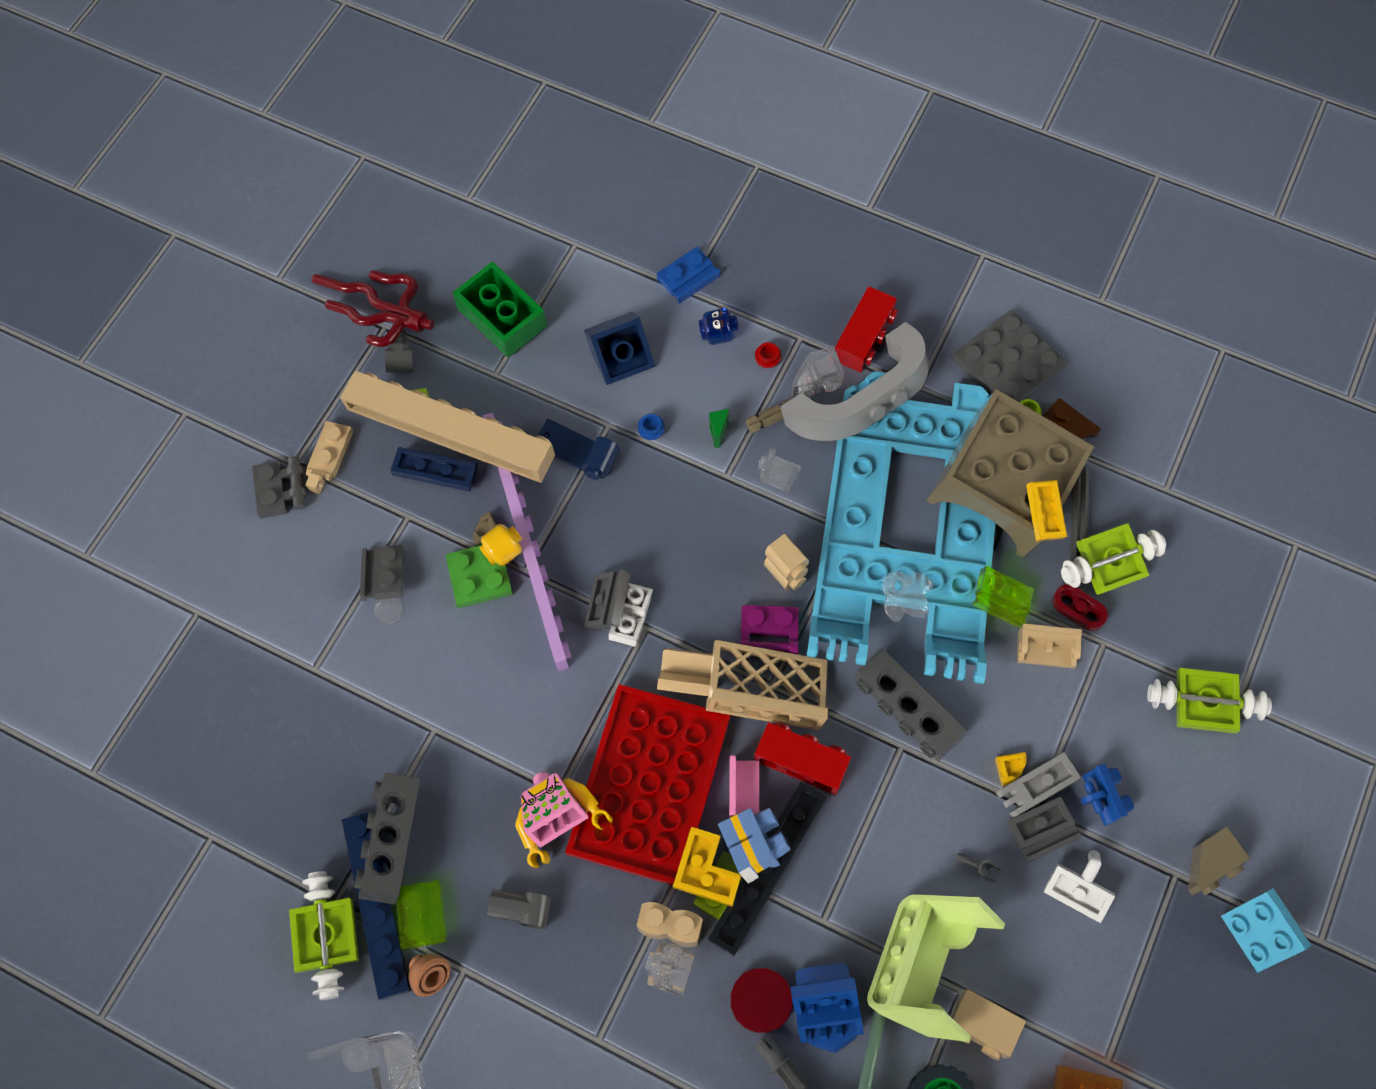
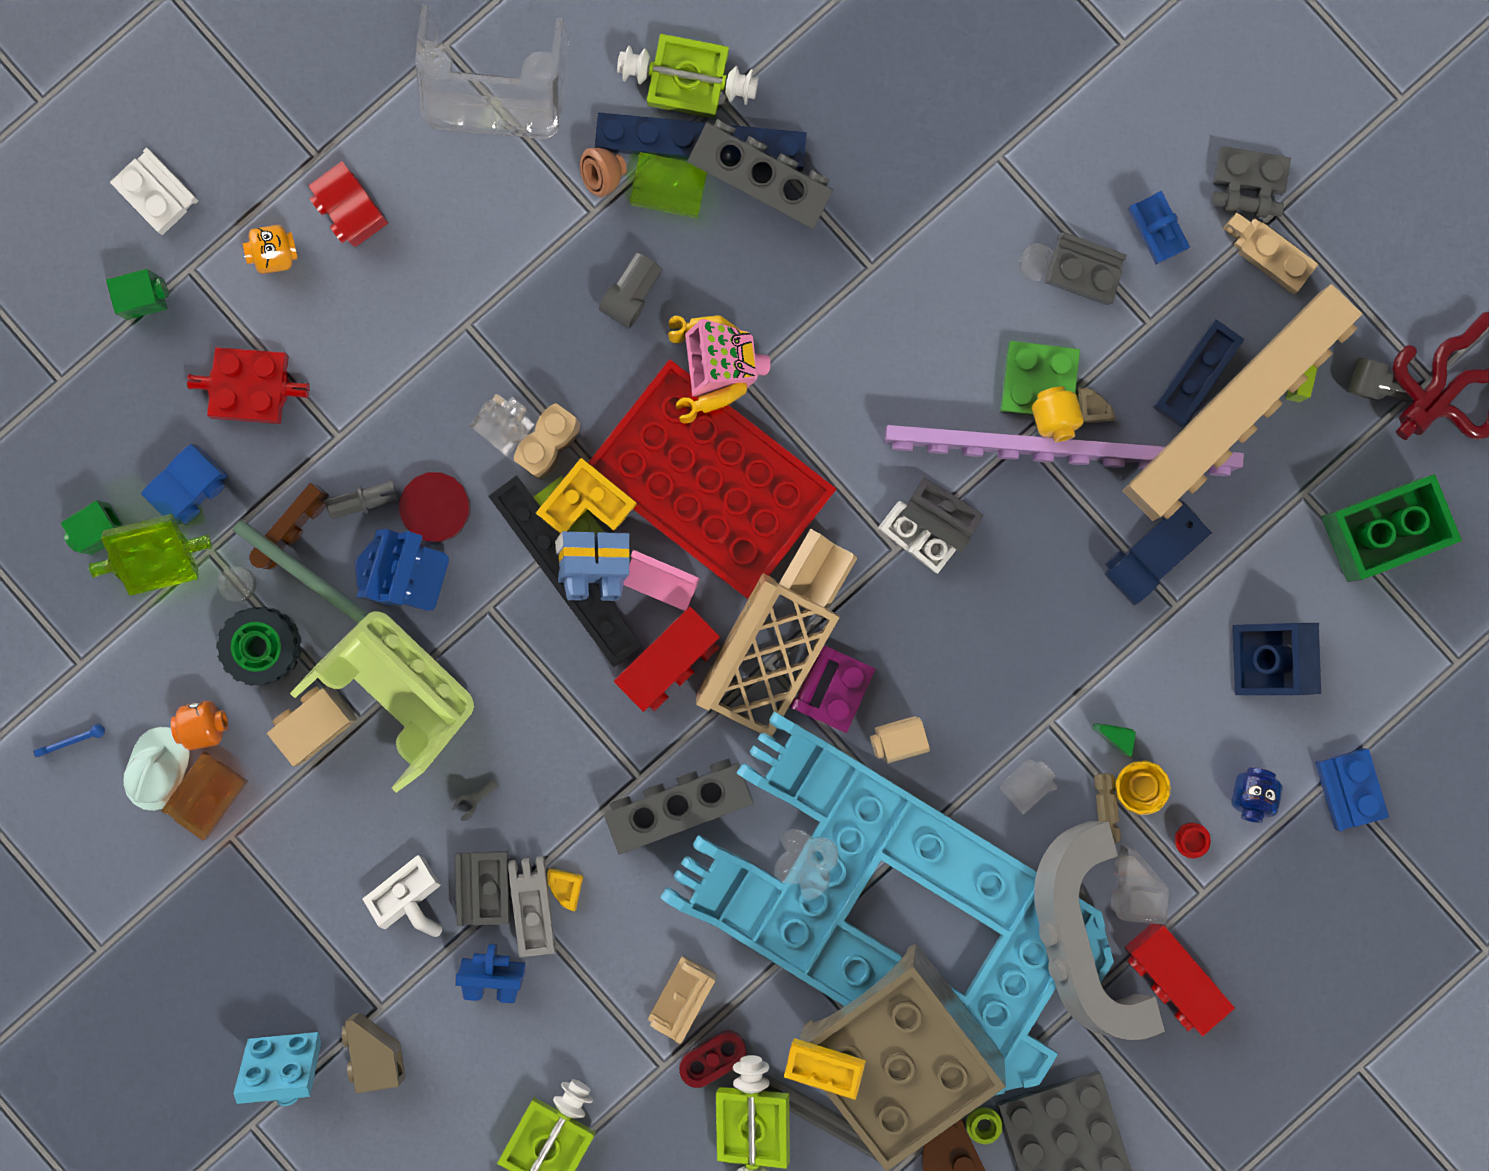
camera: 115 degrees right, 20 degrees up
(334, 532) = (1159, 227): none -> blue hips
(651, 427) = (1151, 655): blue plate -> none
(746, 396) = (1143, 787): none -> yellow hair
(1003, 596) = (760, 975): clear neon green plate -> none

